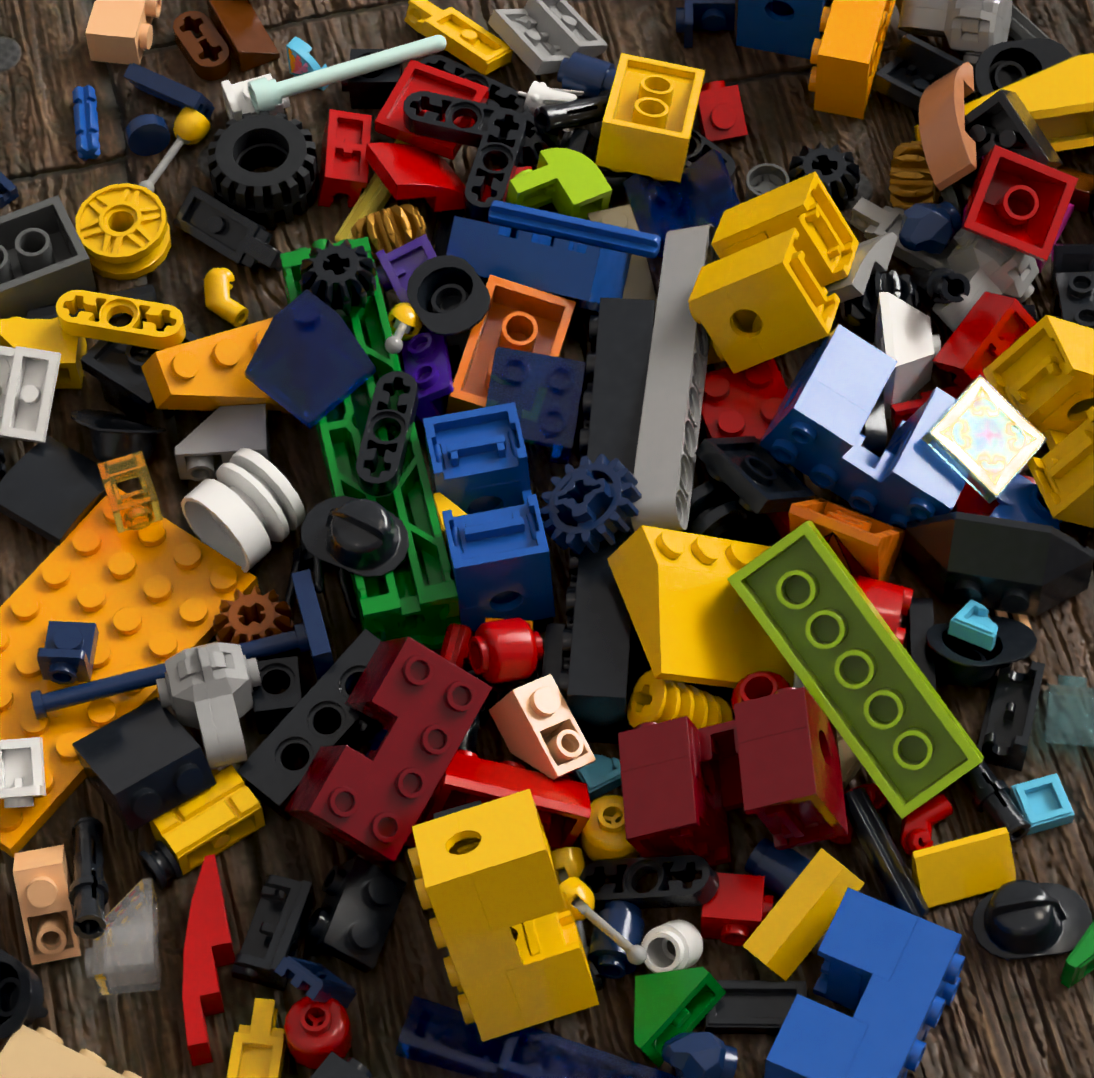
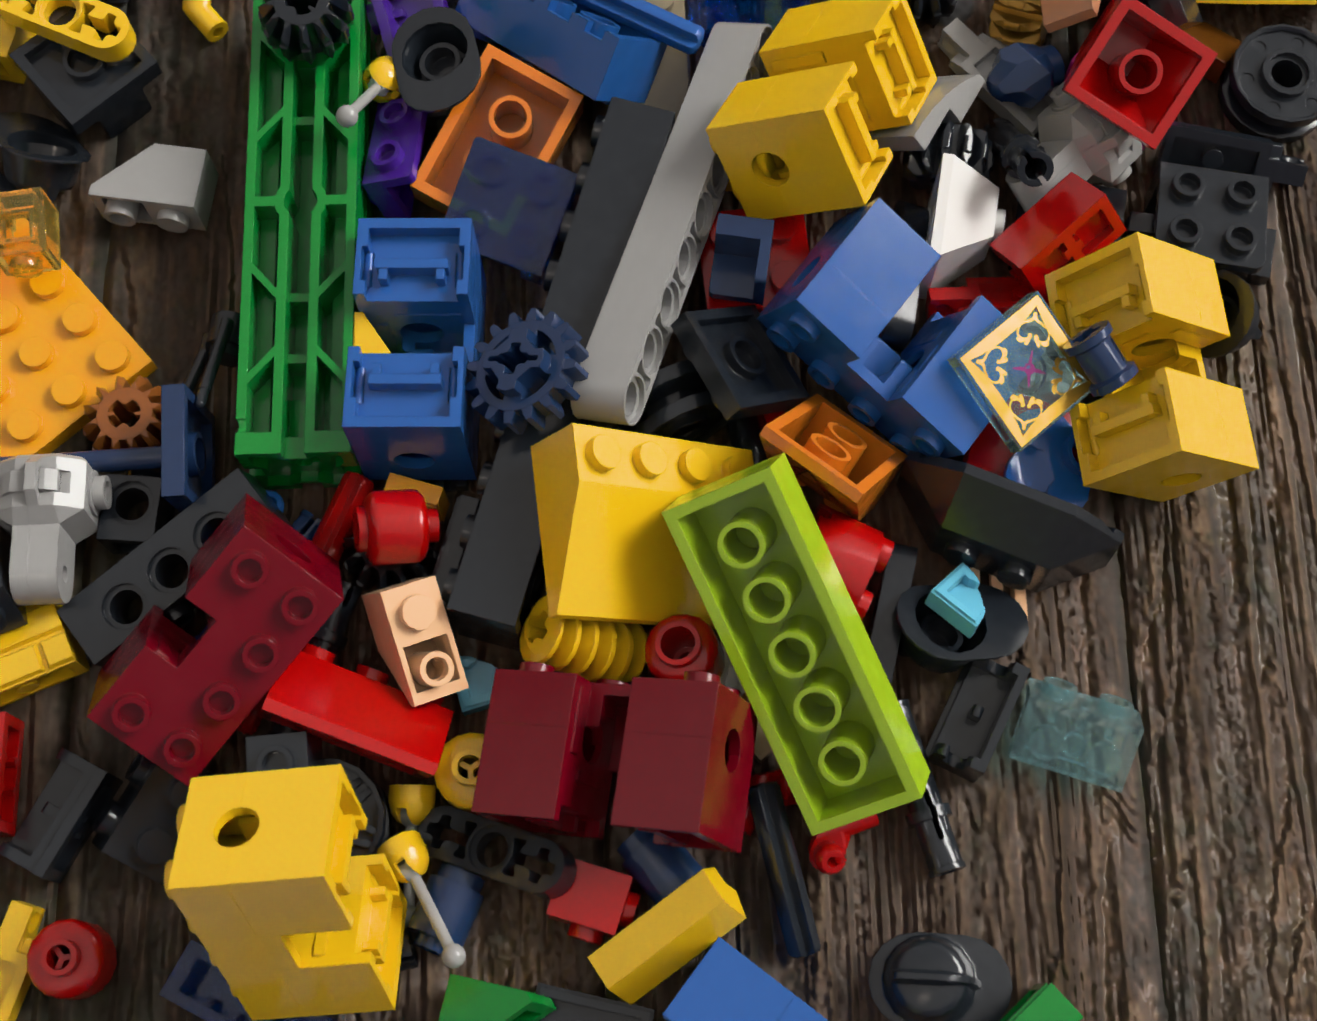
camera: 10 degrees right, 15 degrees up
(208, 372) = (167, 101): light orange wedge -> none
(244, 508) = (148, 278): white wheel -> none
(309, 360) = (247, 115): clear blue slope -> none
(316, 980) = (65, 927): dark blue tile -> none
(355, 536) = (250, 351): black piece -> none
(393, 450) = (316, 201): black beam -> none
(660, 949) = (503, 942): white brick -> none
(736, 399) = (741, 258): none -> dark blue panel
(964, 867) = (874, 905): yellow slope -> none
(1042, 415) = (1100, 358): none -> dark blue bush
(1043, 803) = (987, 833): medium azure tile -> none

